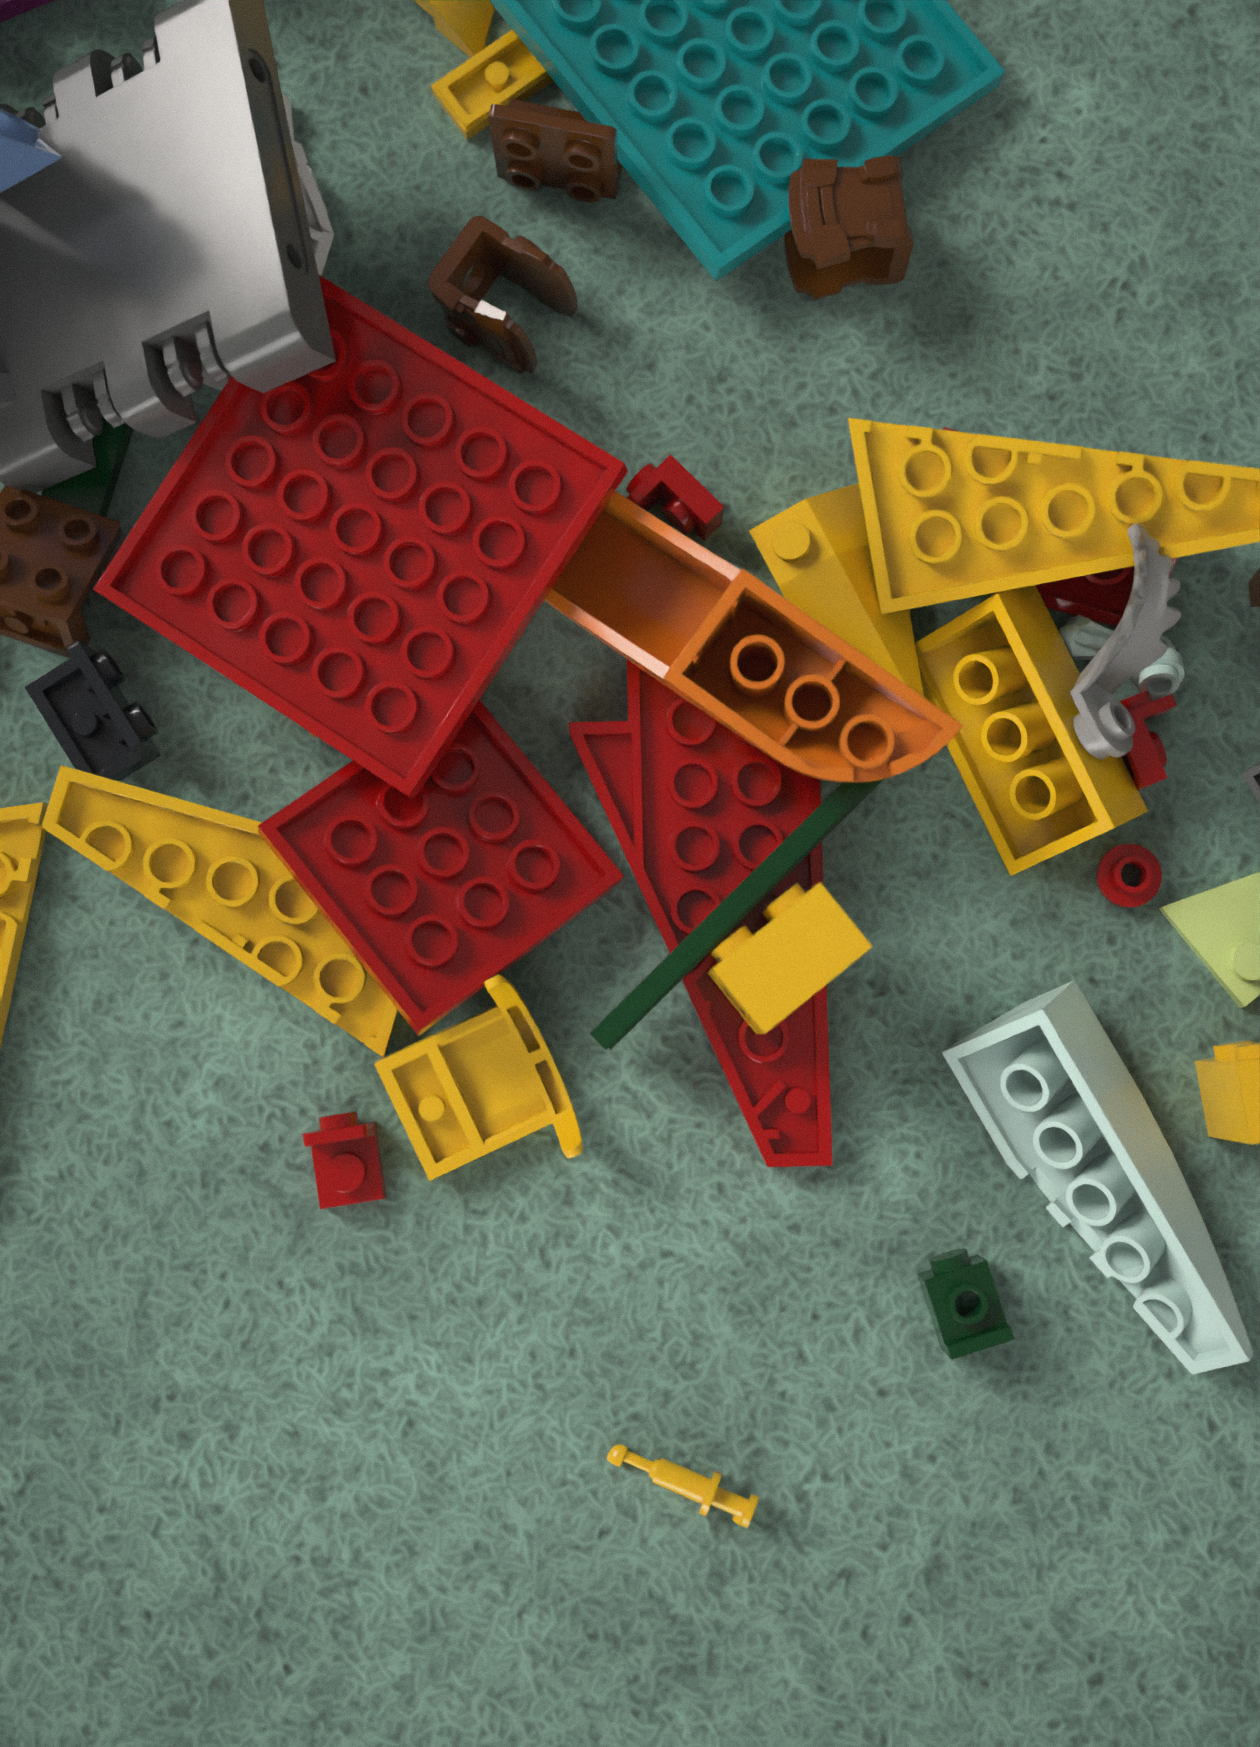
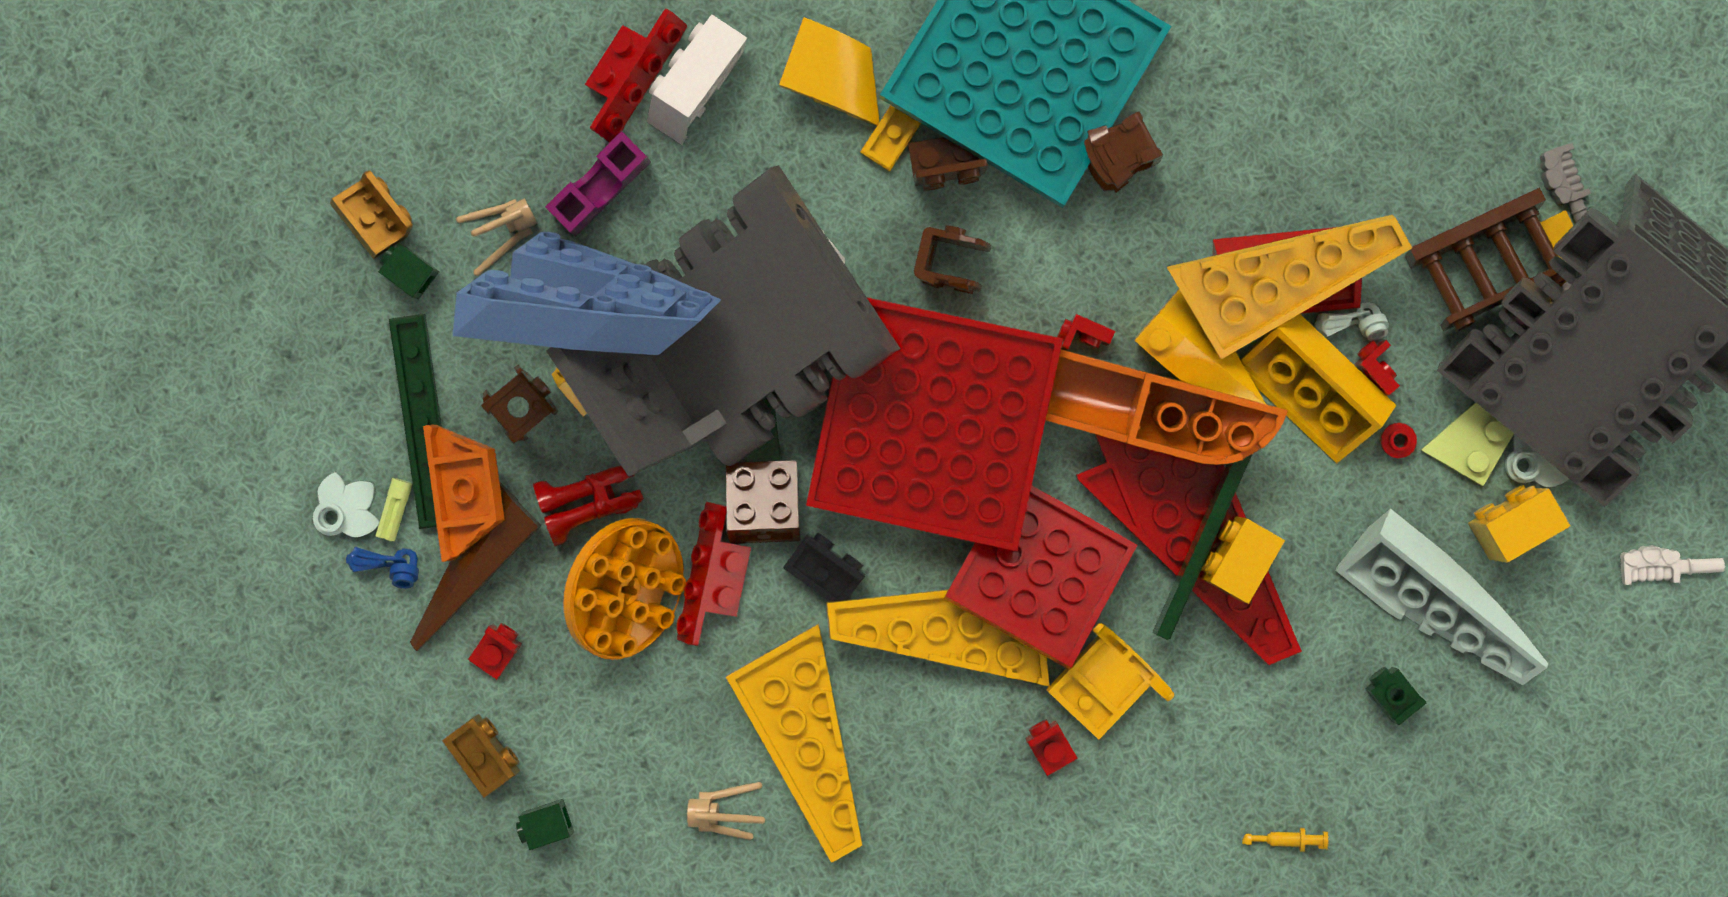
camera: 25 degrees left, 5 degrees up
(1103, 722) = (1355, 372): light grey plant -> none

